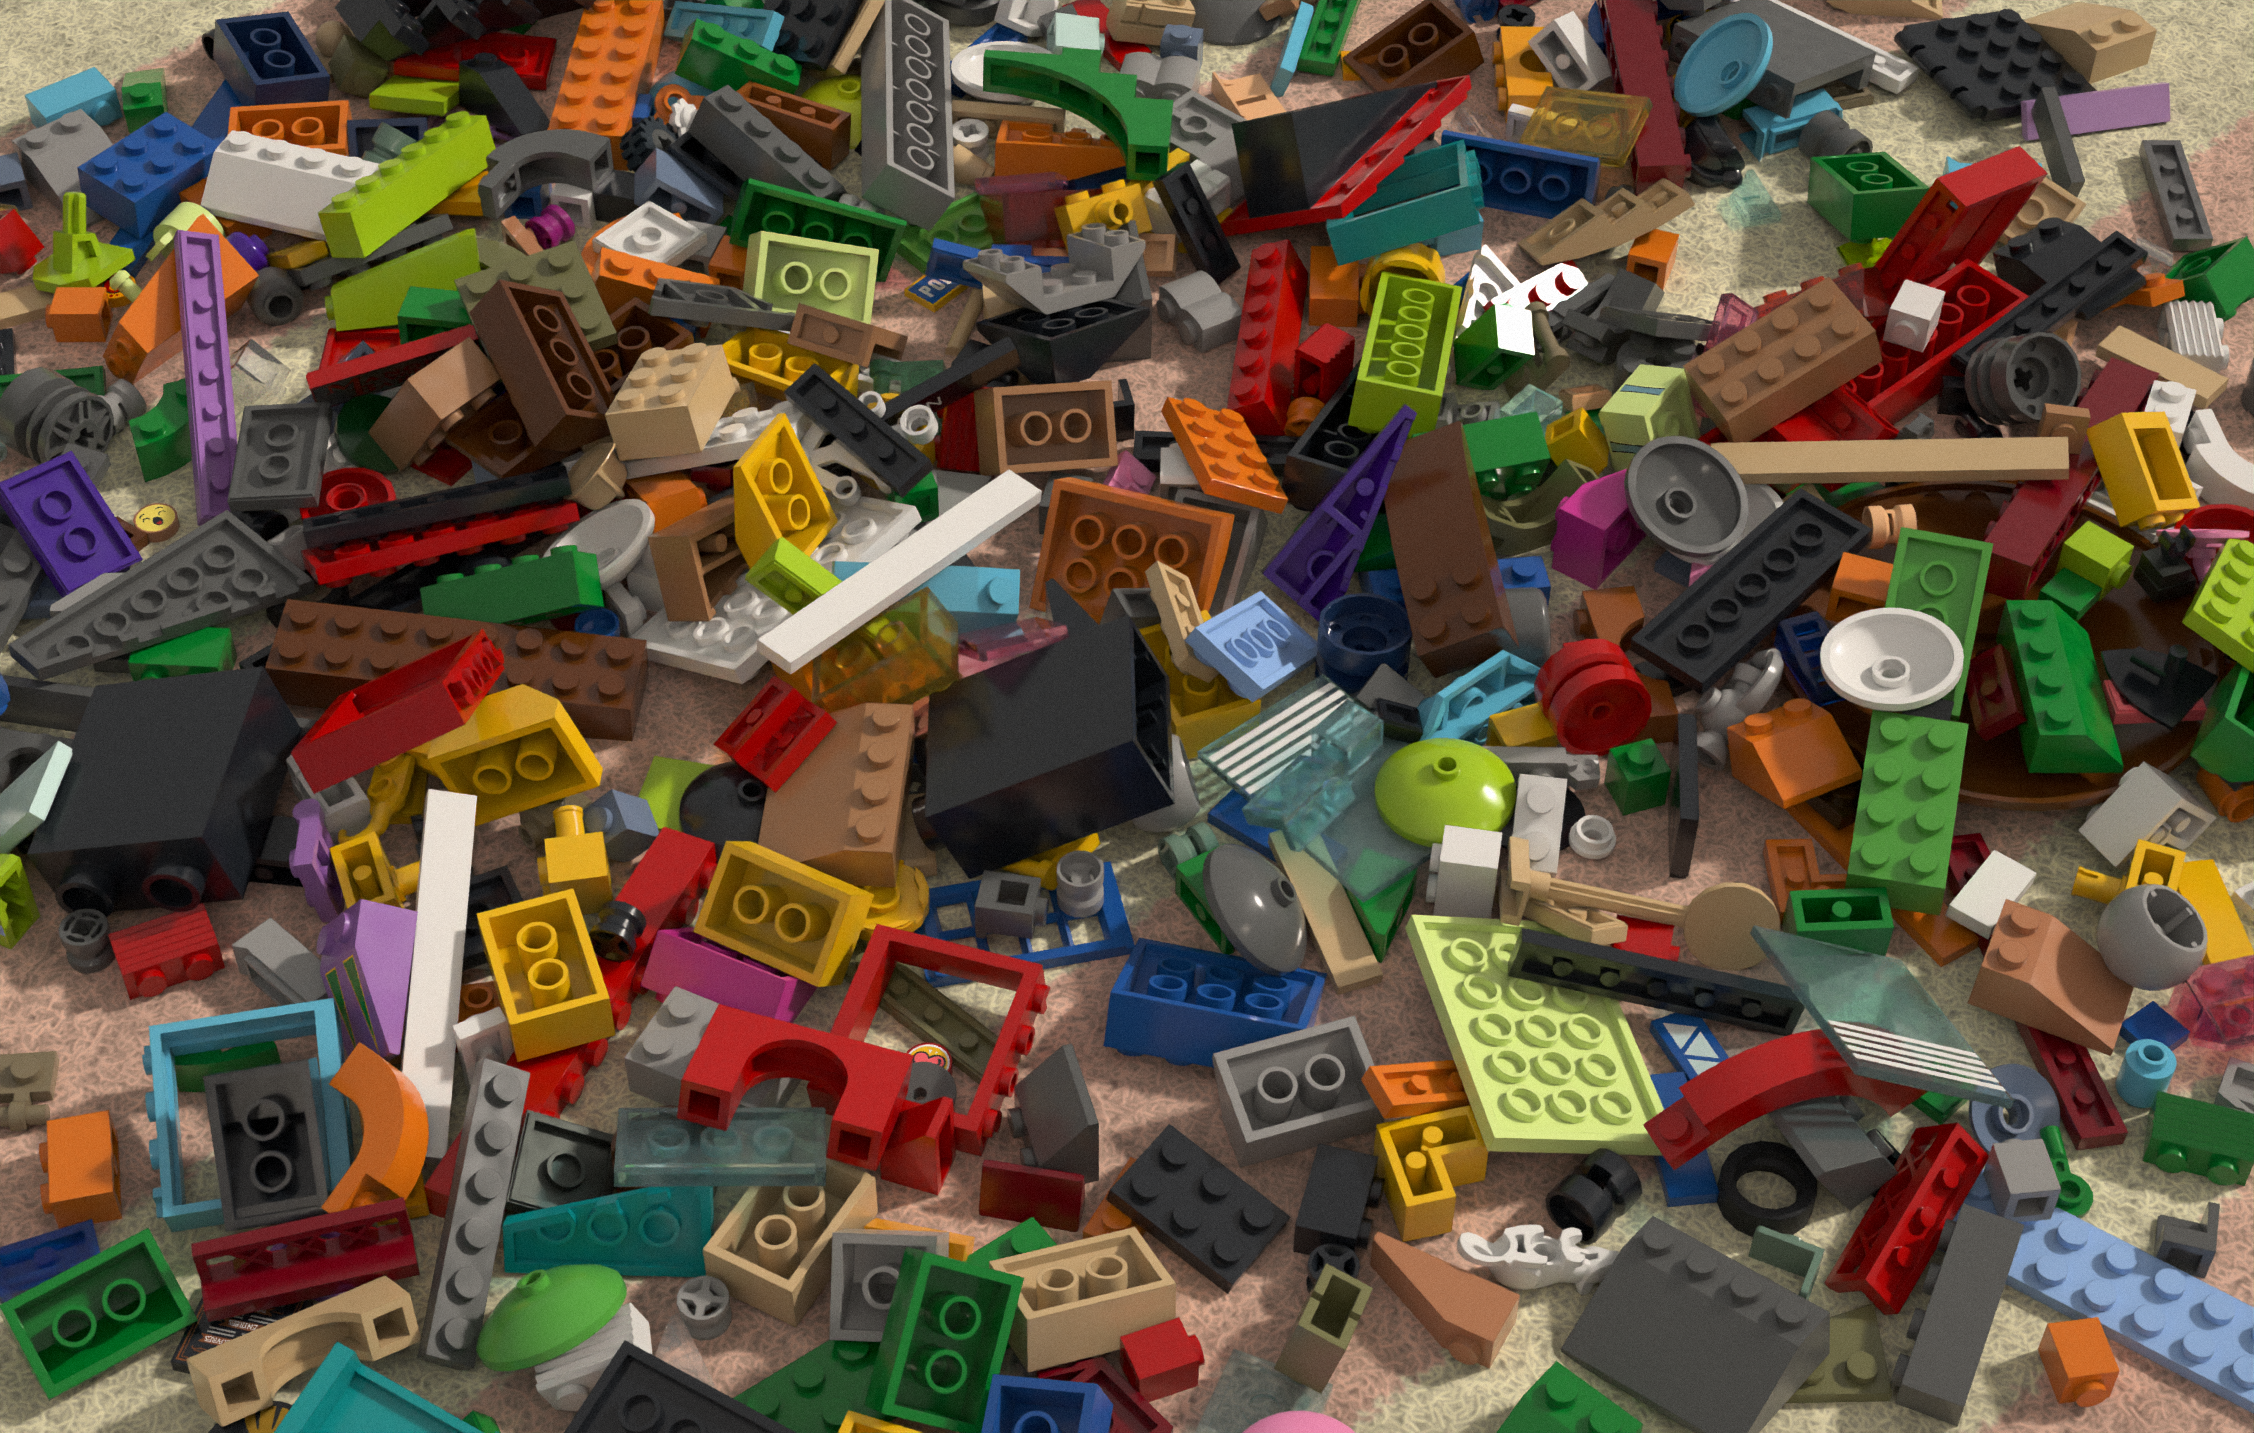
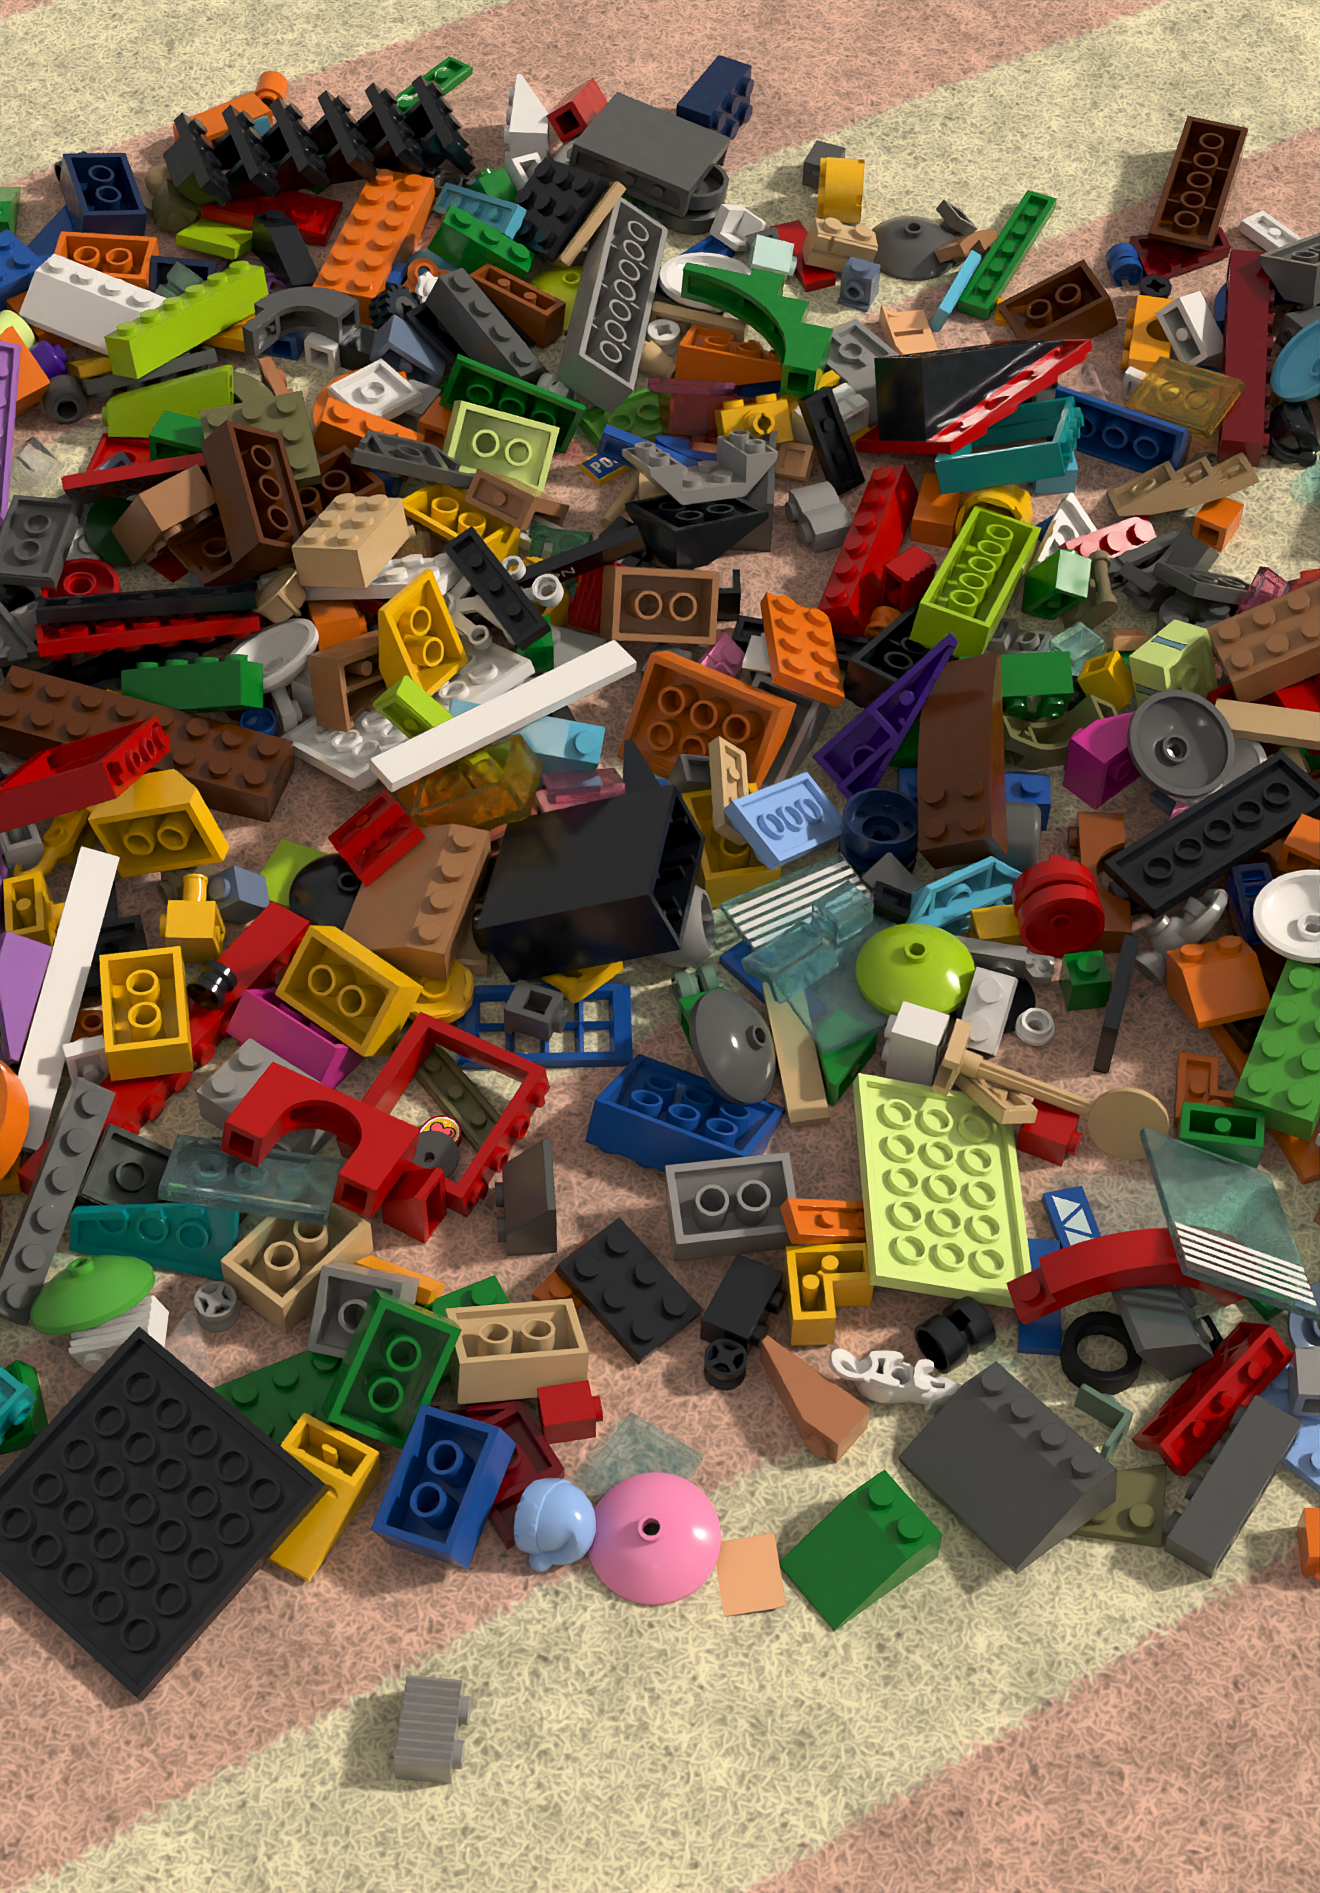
camera: 10 degrees right, 5 degrees up
(552, 226) = (300, 370): magenta wheel -> none
(1025, 1192) = (494, 1254): dark red slope -> none
(1080, 883) = (597, 1002): light grey wheel -> none
(1160, 76) = (835, 304): light grey brick -> none
(1323, 1328) = (702, 1409): olive piece -> none
(1655, 982) = (1047, 1161): black plate -> none

